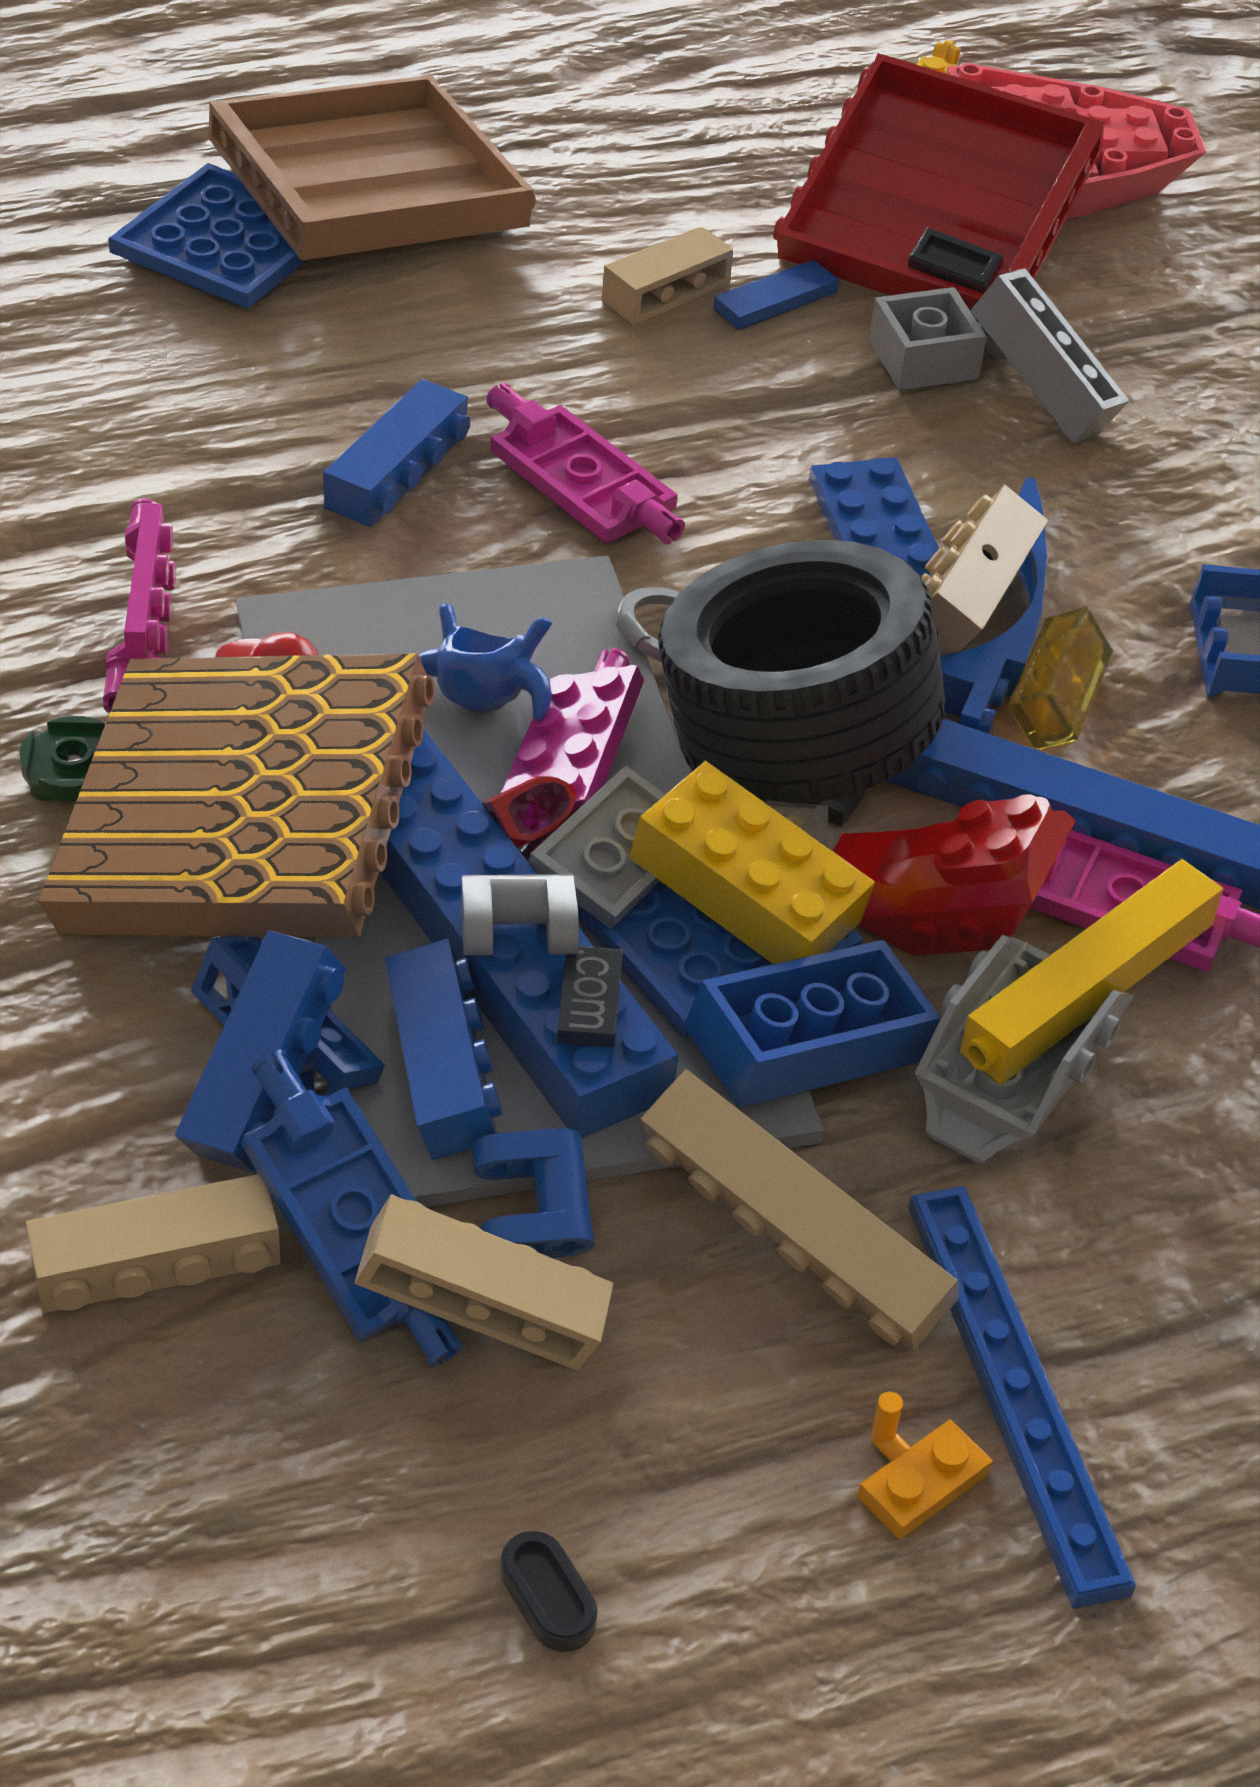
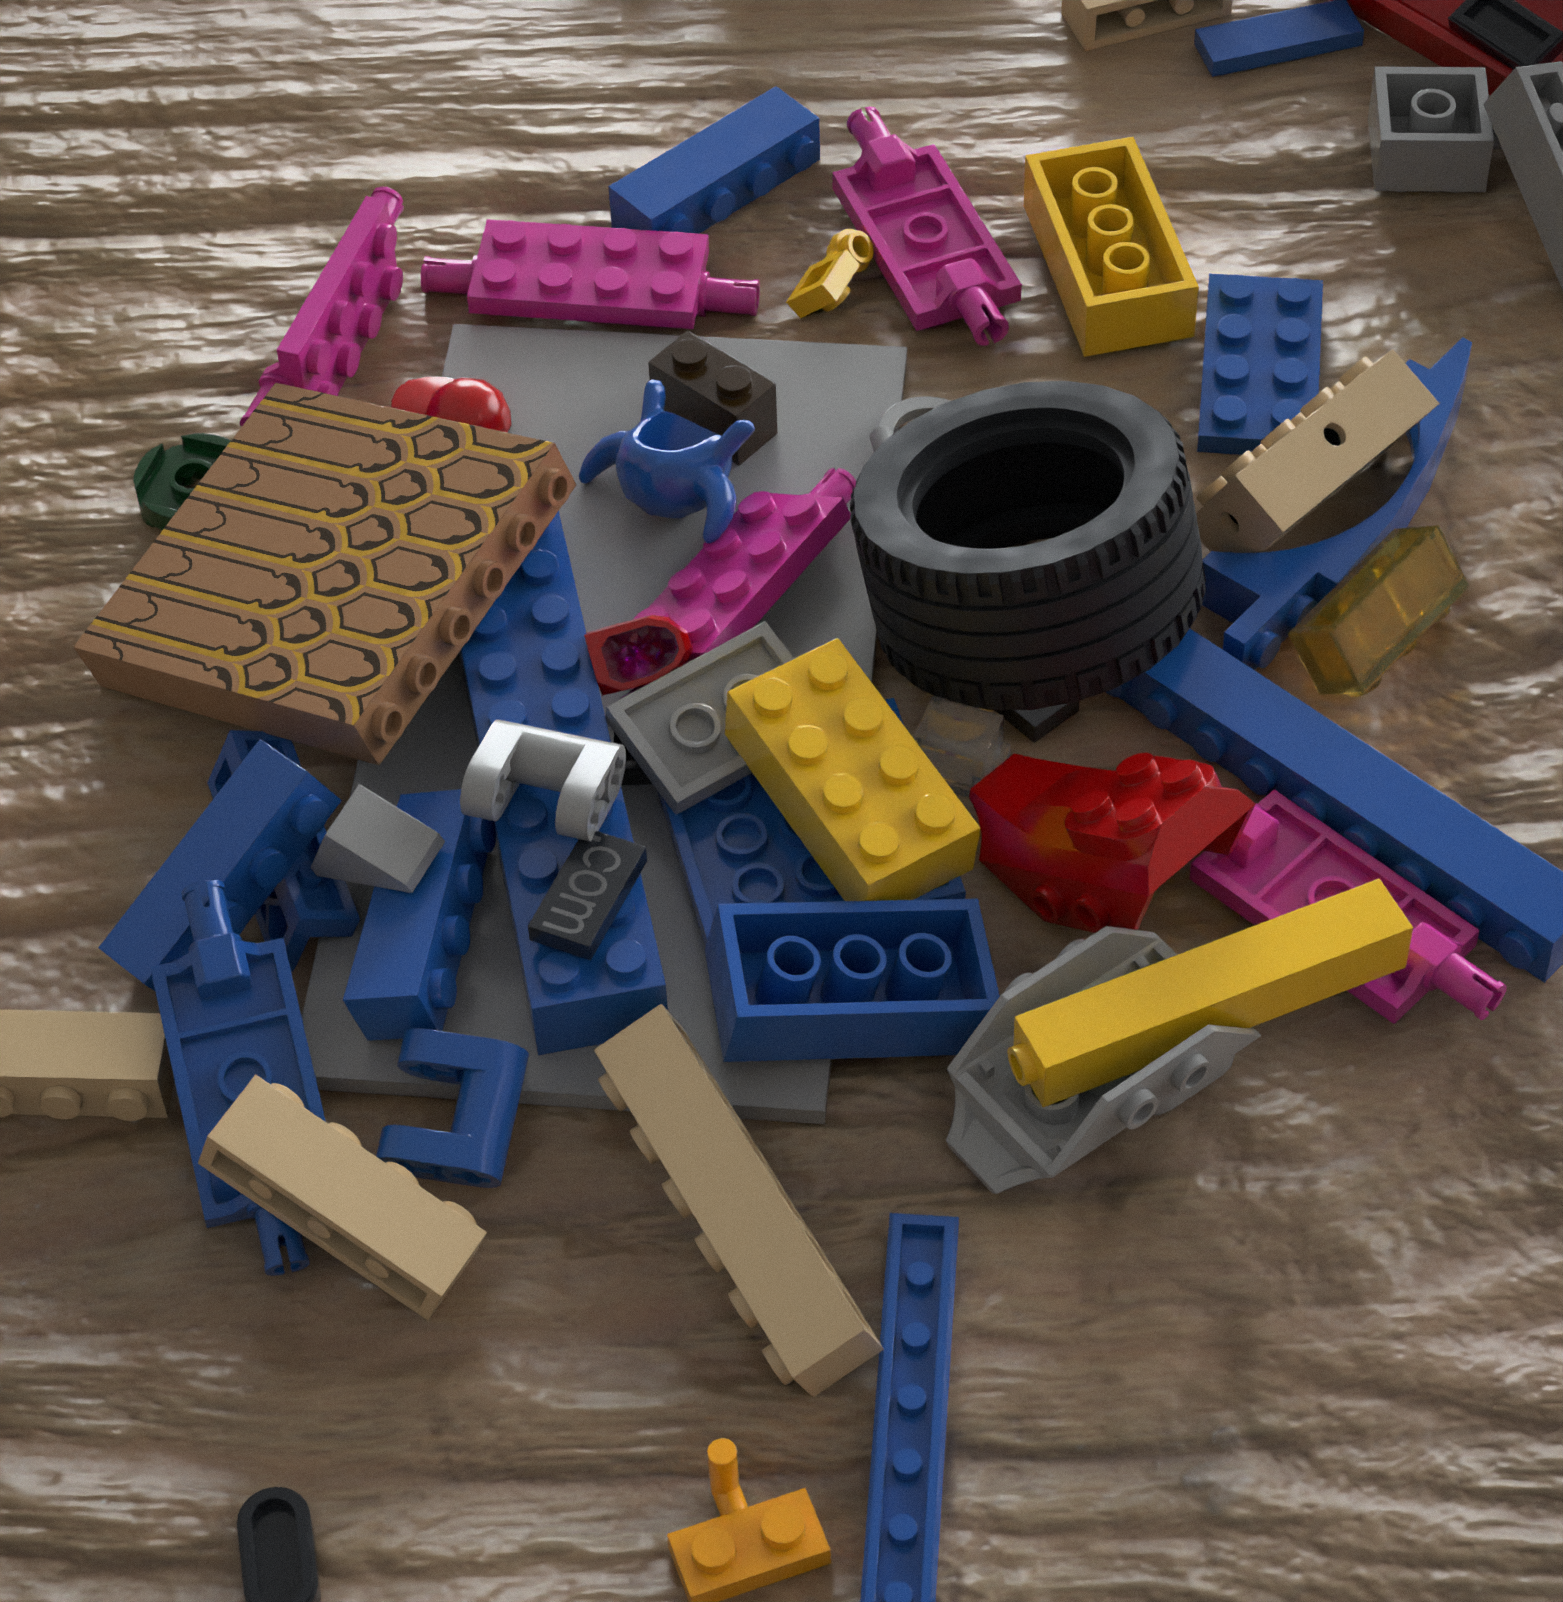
camera: 25 degrees right, 5 degrees up
(330, 543) = (590, 275): none -> dark pink plate
(390, 997) = (376, 845): none -> light grey slope
(484, 603) = (716, 391): none -> dark brown brick
(525, 516) = (827, 281): none -> yellow plate
(734, 456) = (1110, 246): none -> yellow brick

